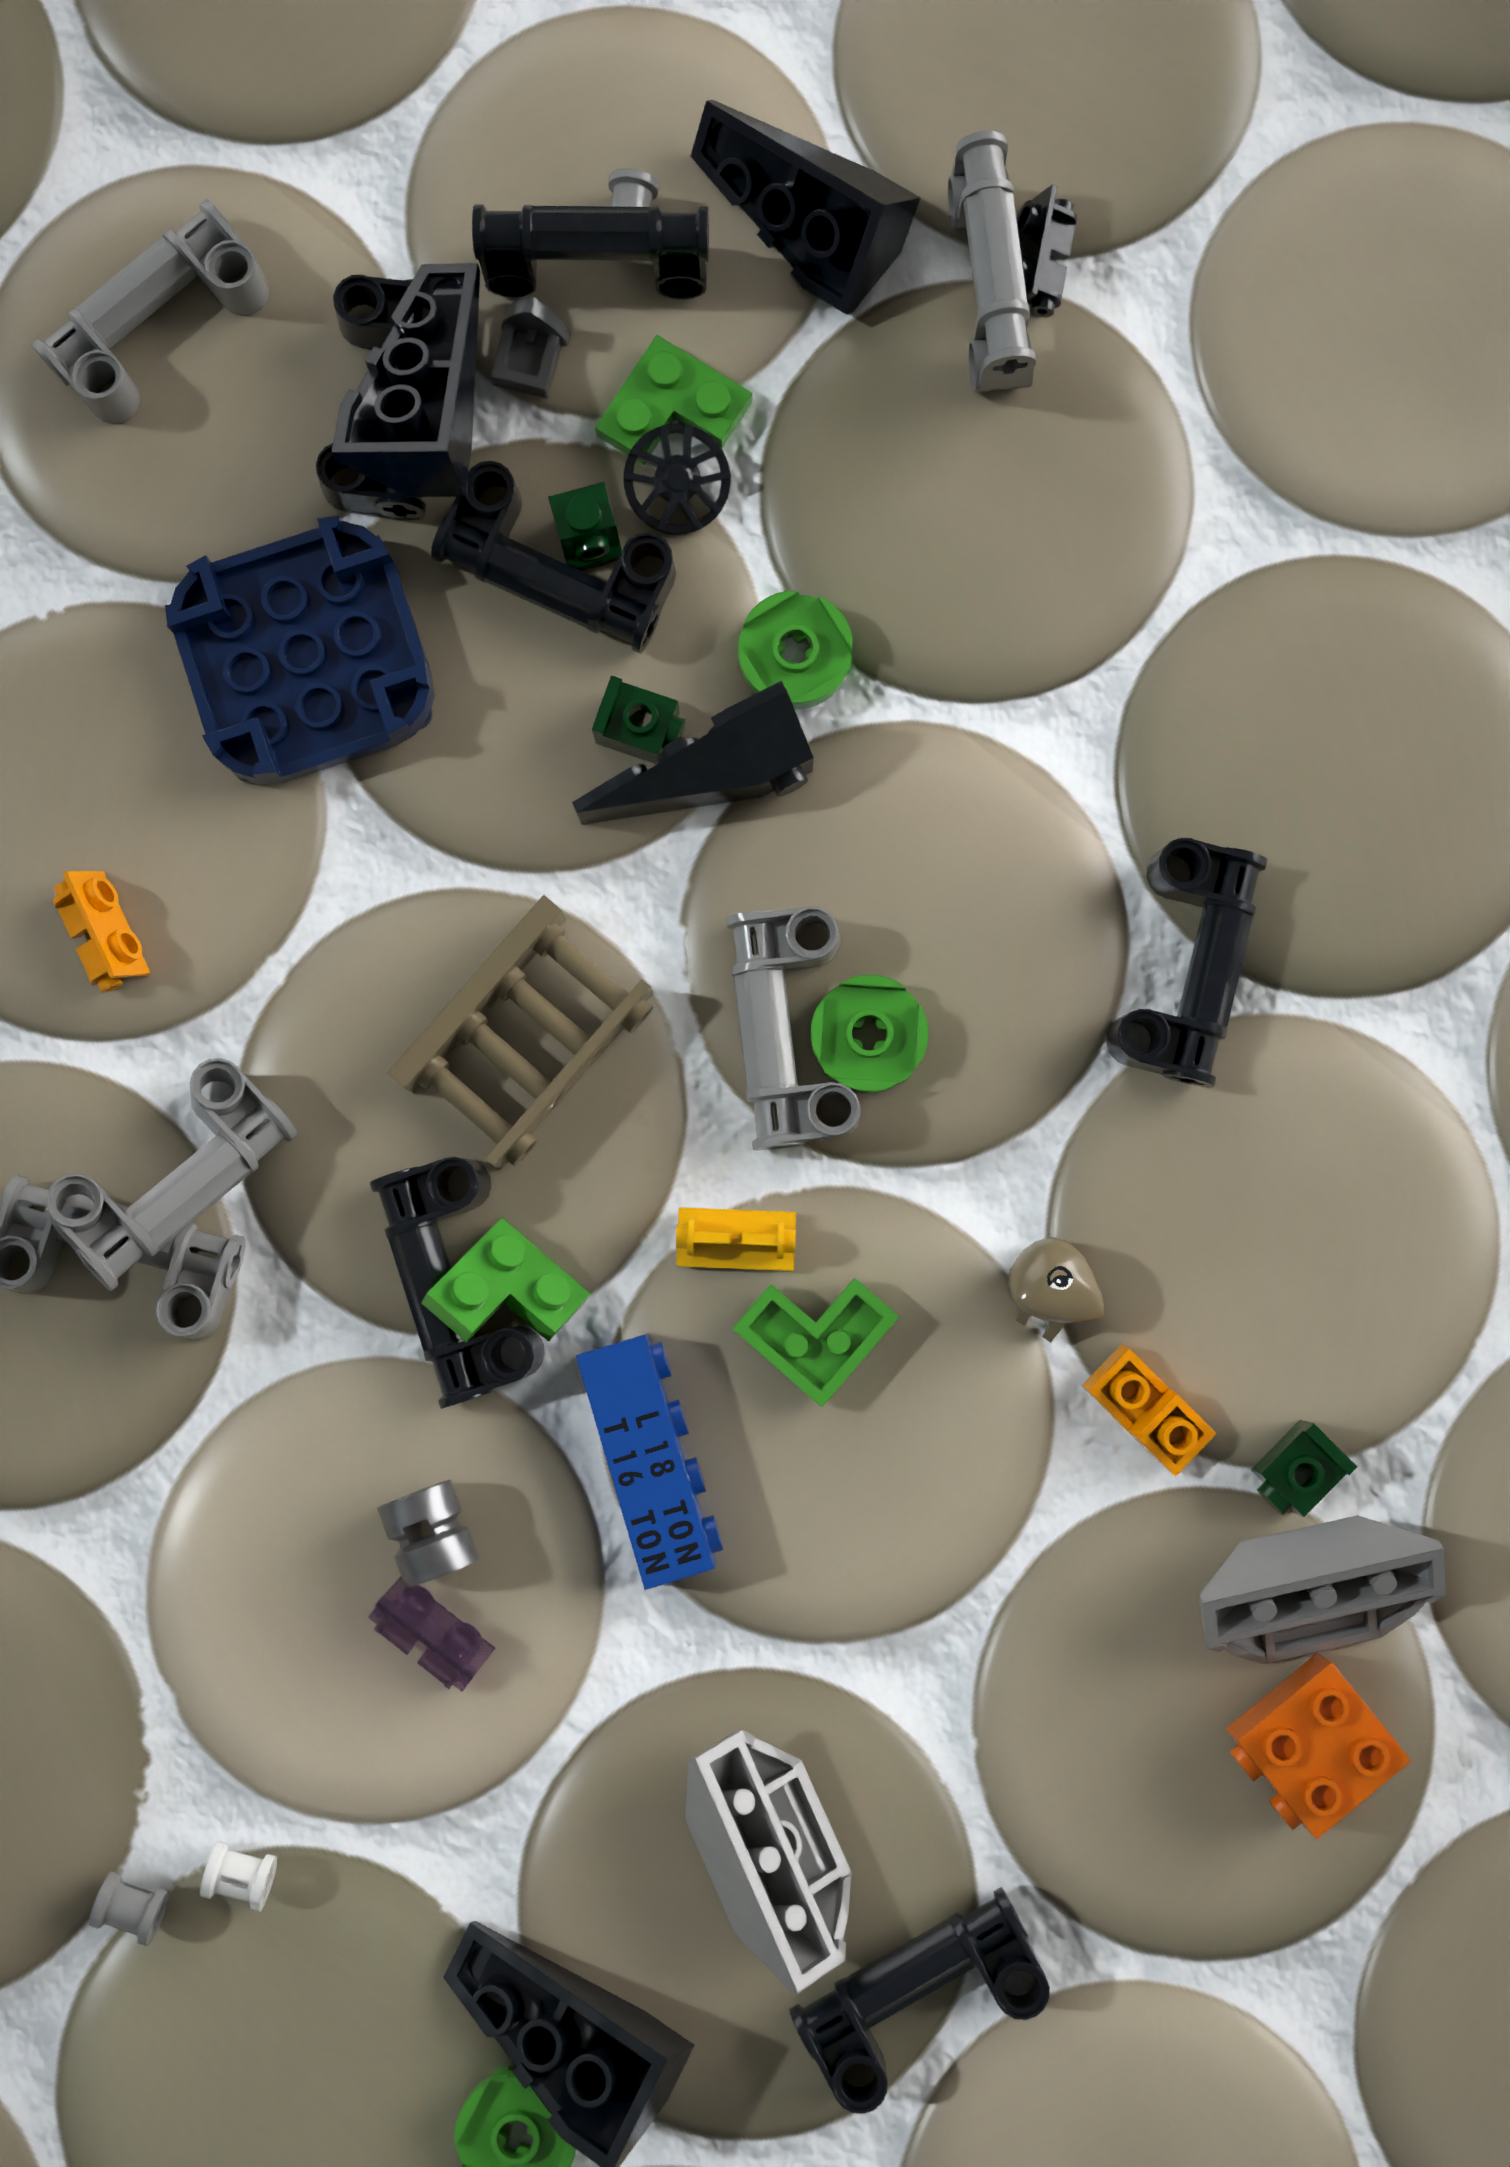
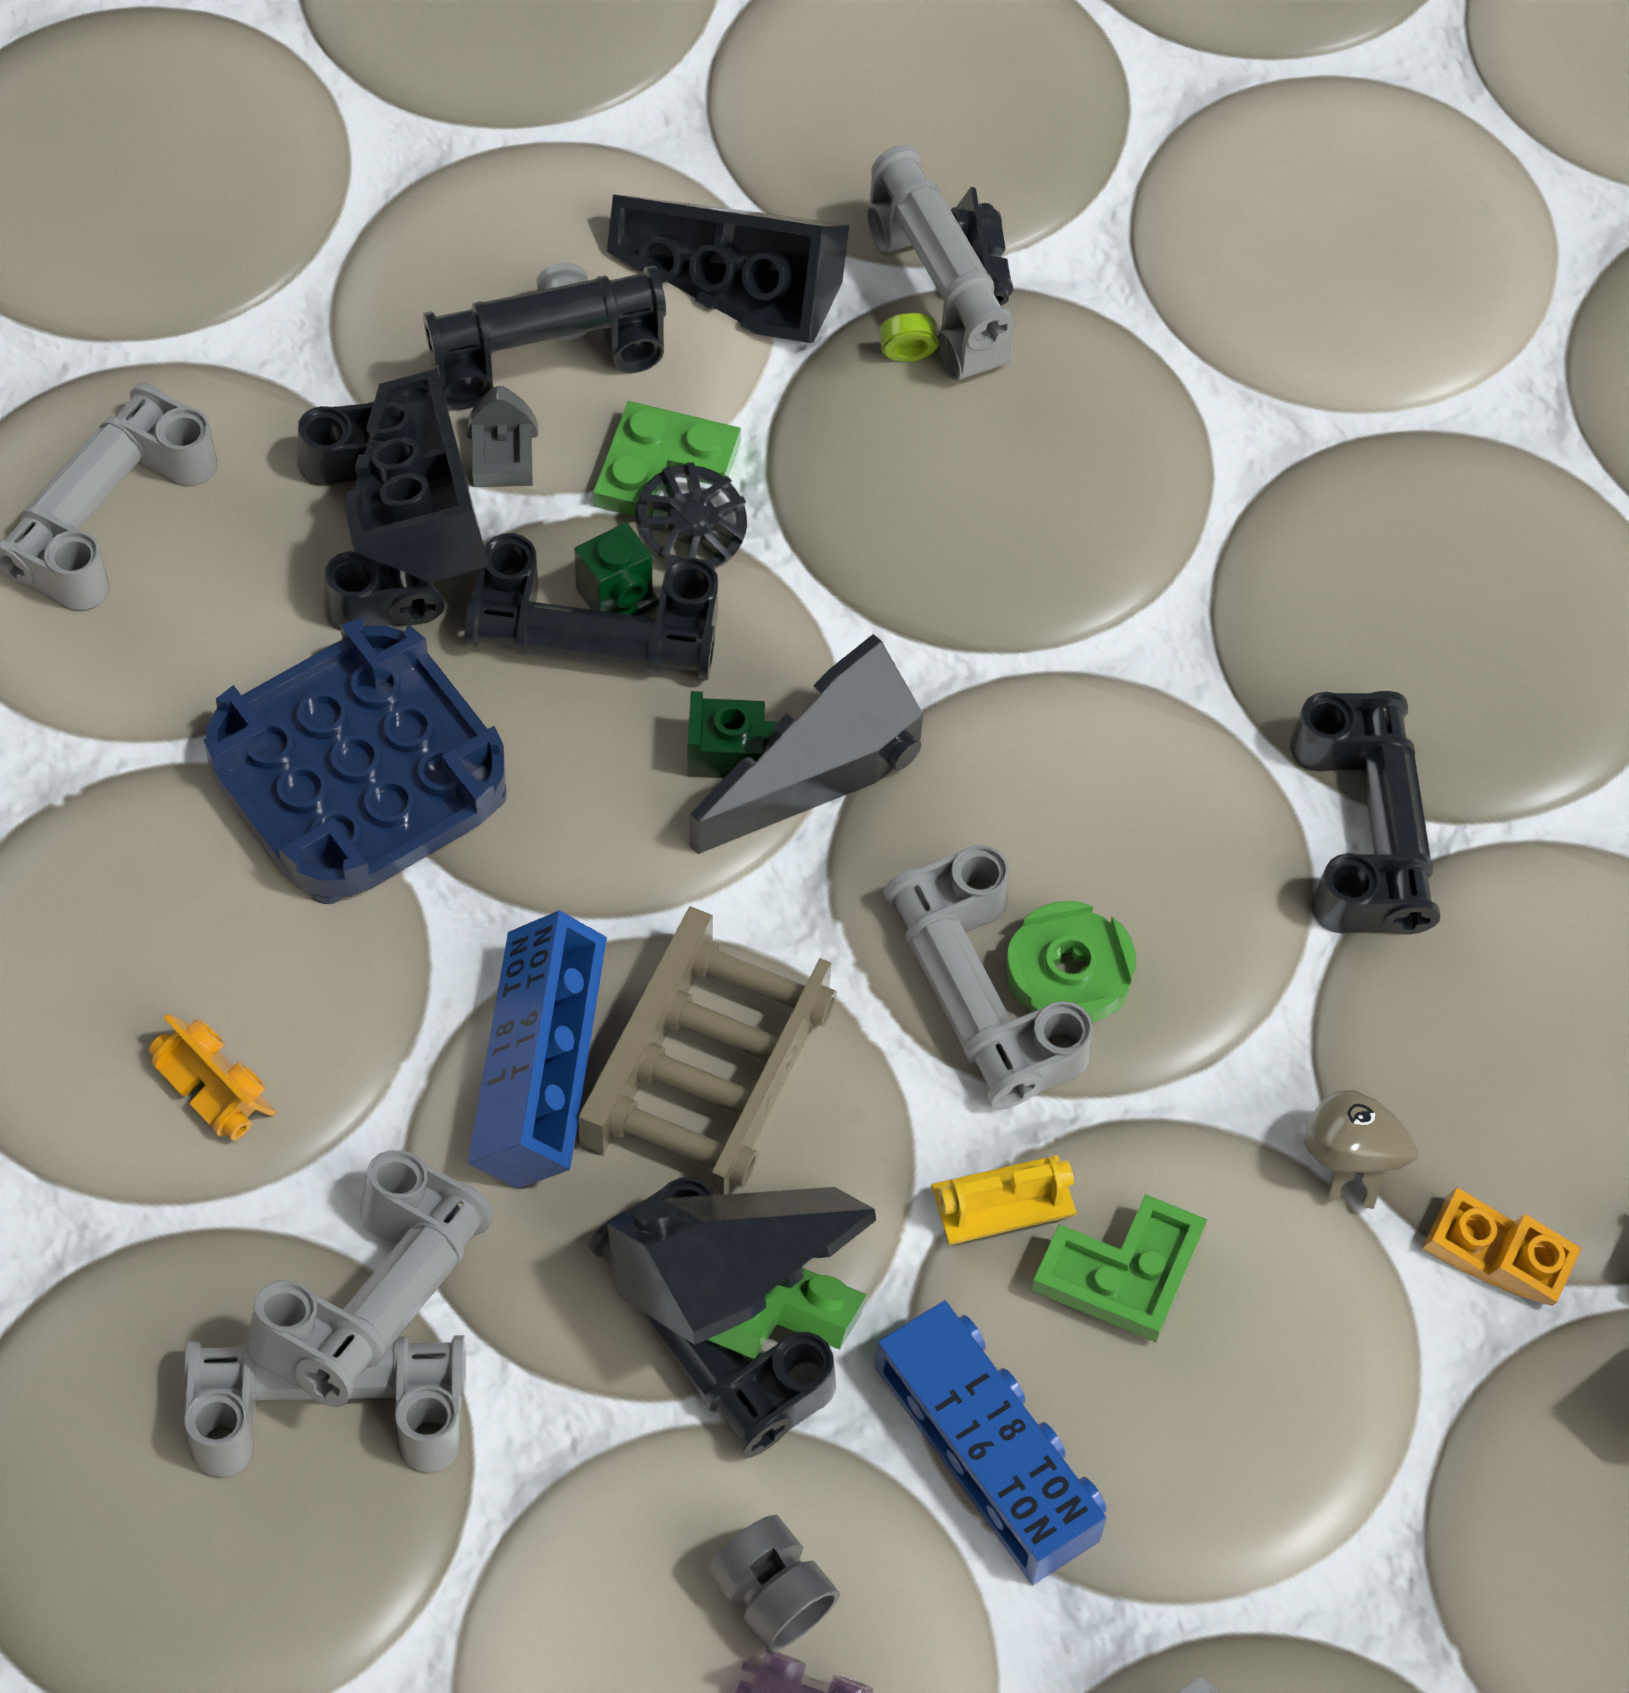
camera: 25 degrees left, 25 degrees down
(375, 992) = (538, 1050): none -> blue brick
(463, 1247) = (715, 1257): none -> black wedge
(803, 619) = (864, 608): bright green plate -> none
(941, 335) = (909, 337): none -> lime tile

